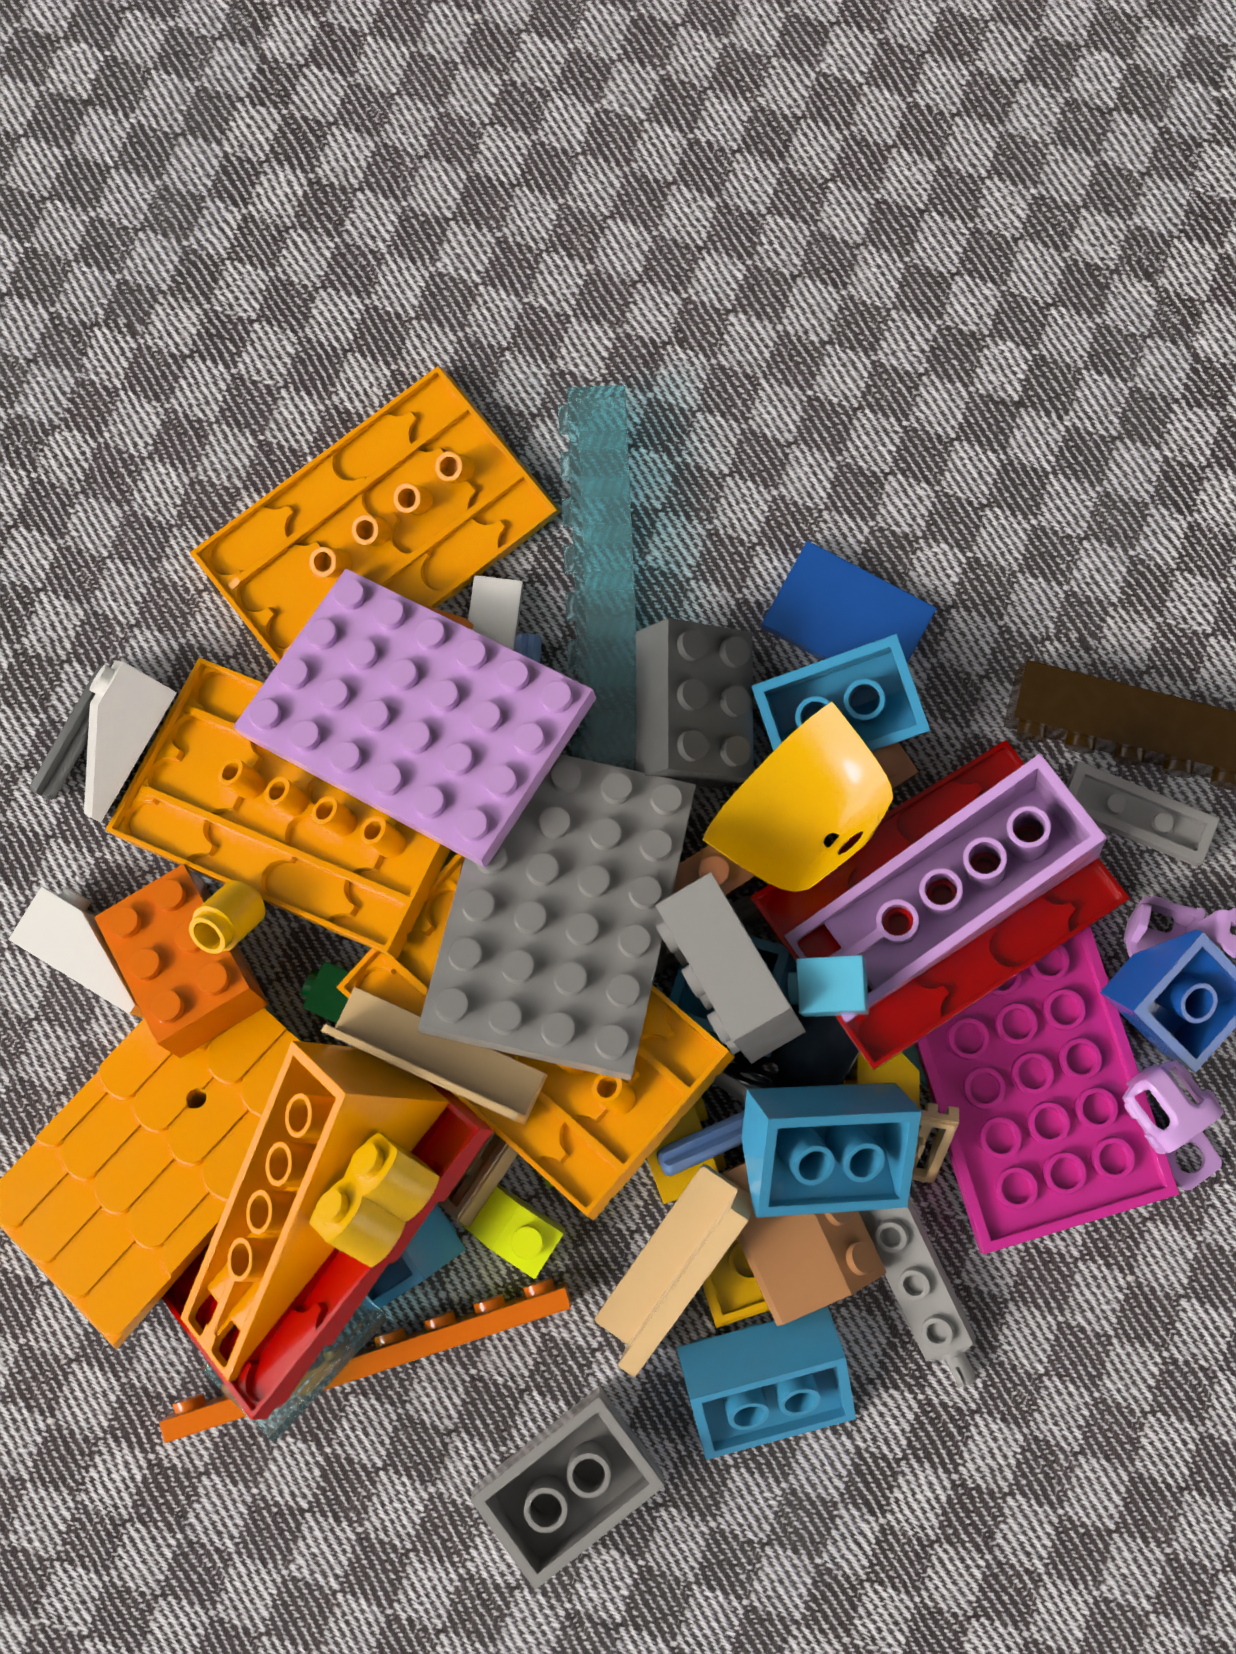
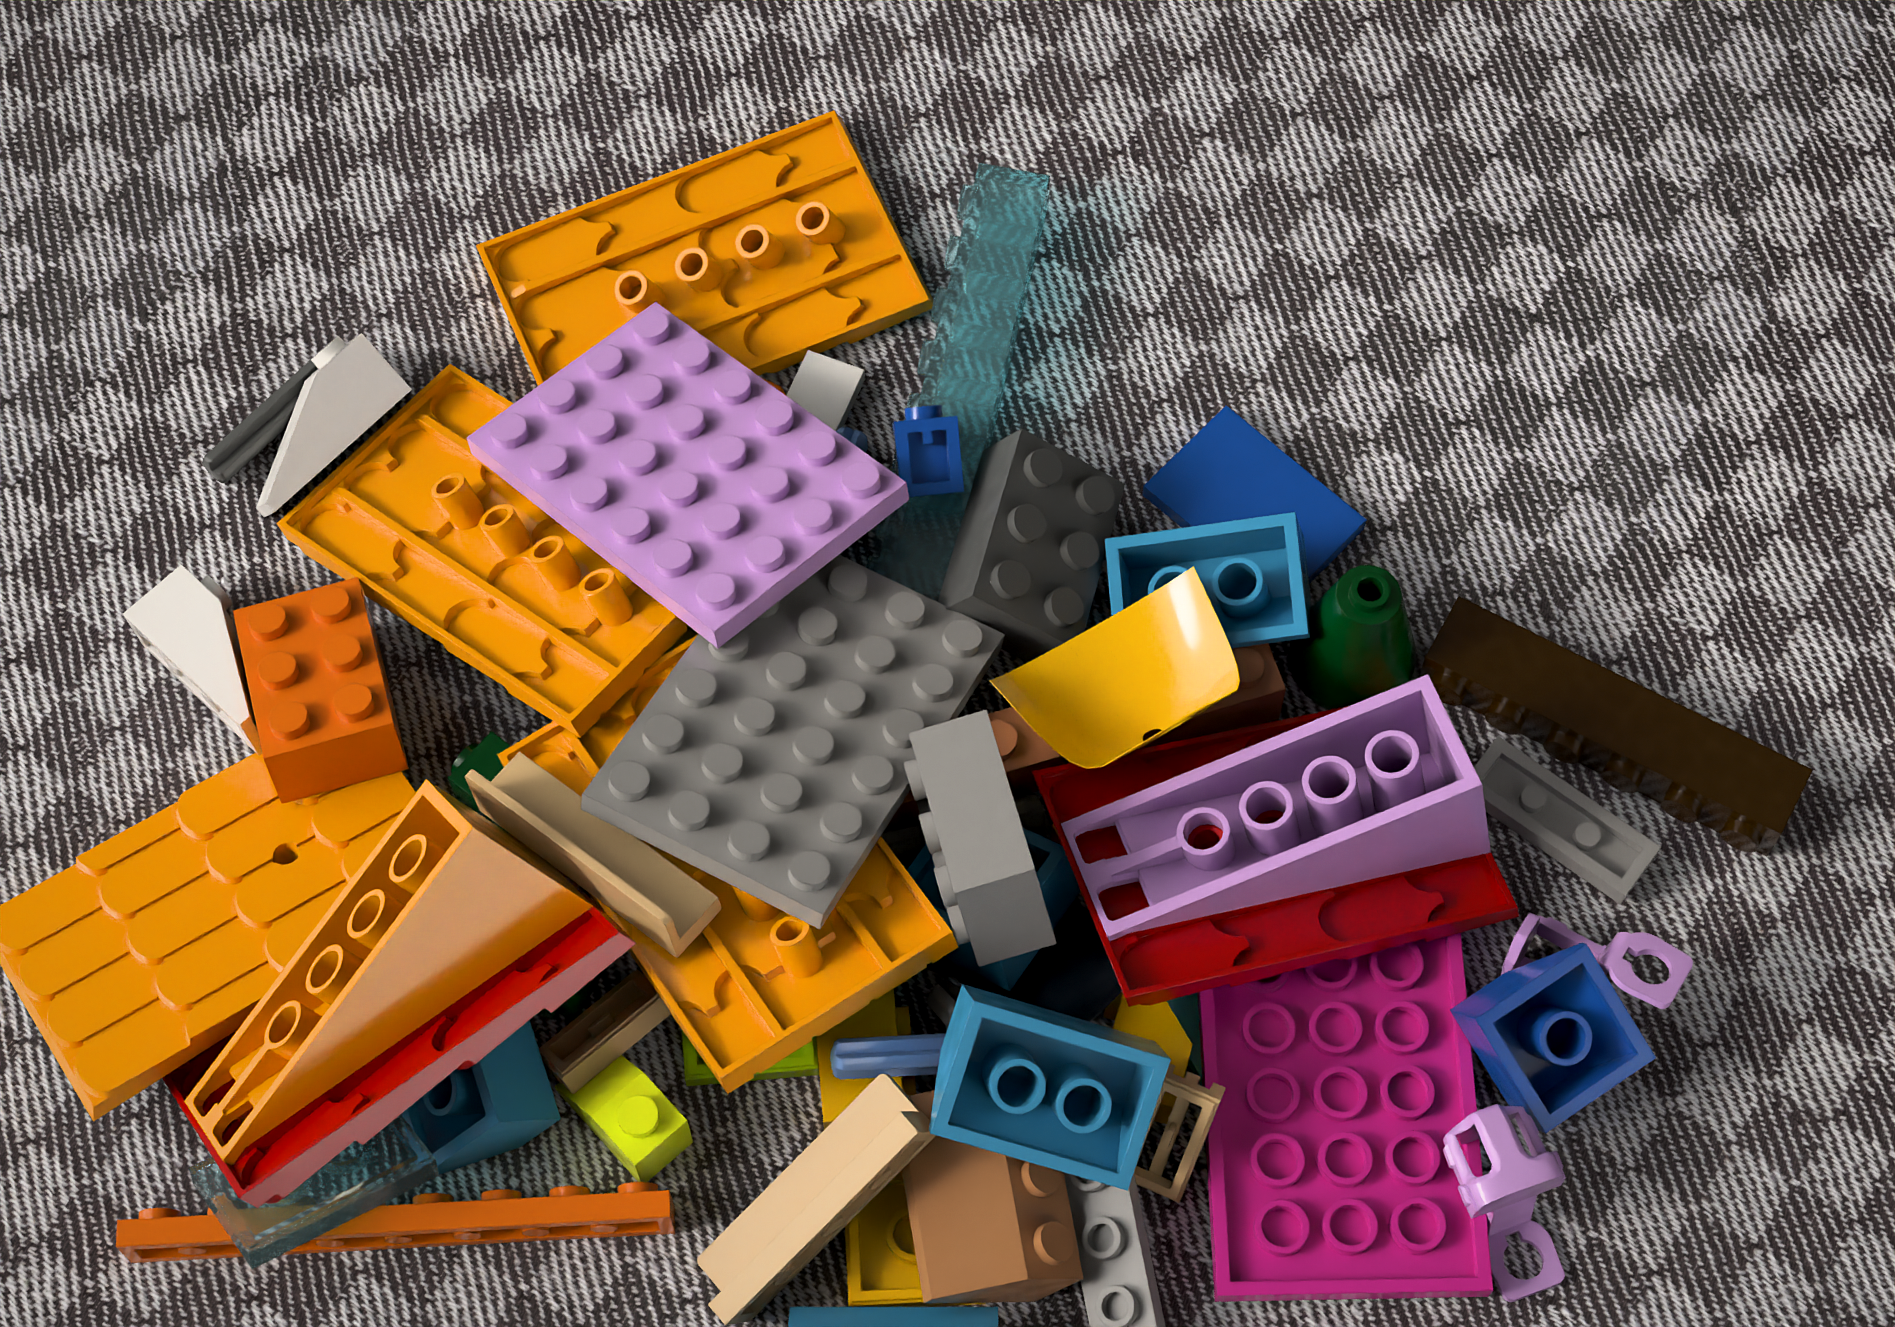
camera: 15 degrees right, 15 degrees down
(227, 917) = (392, 637): yellow brick -> none
(374, 1200) = (467, 975): yellow brick -> none
(597, 648) = (928, 451): none -> blue bracket
(829, 986) = (1097, 881): medium azure brick -> none
(961, 715) = (1356, 641): none -> dark green cone

